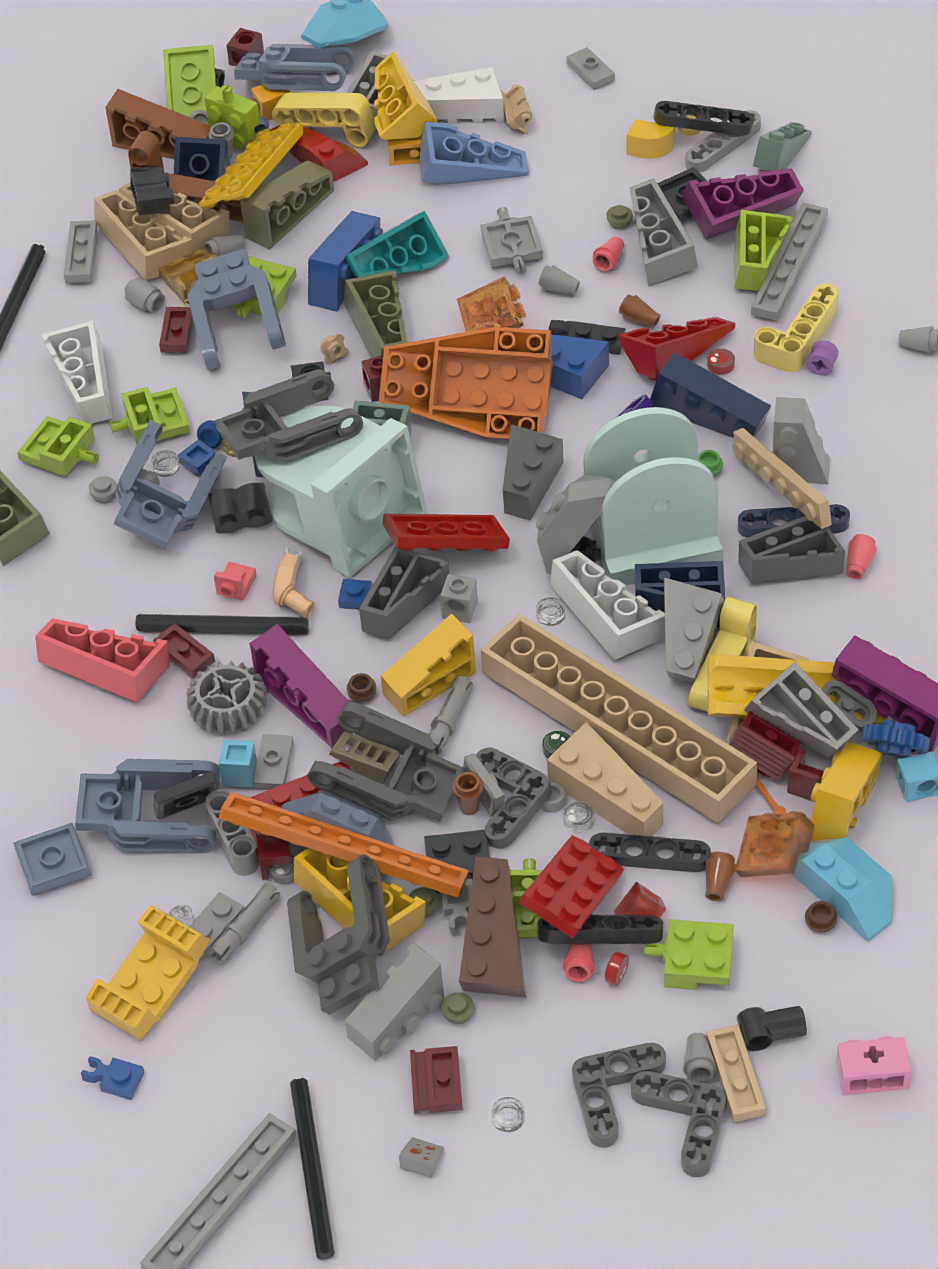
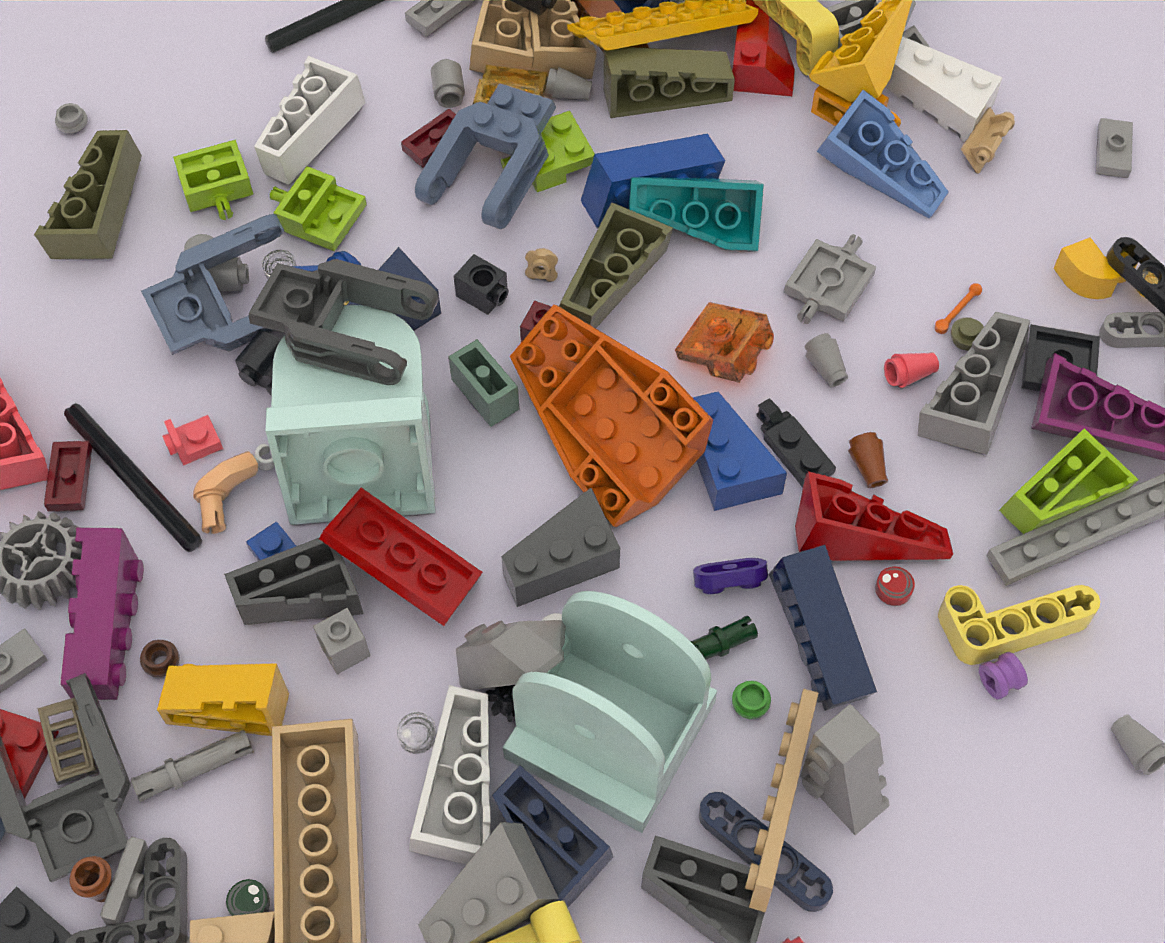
camera: 40 degrees right, 10 degrees up
(599, 222) = (942, 325): none -> orange hinge

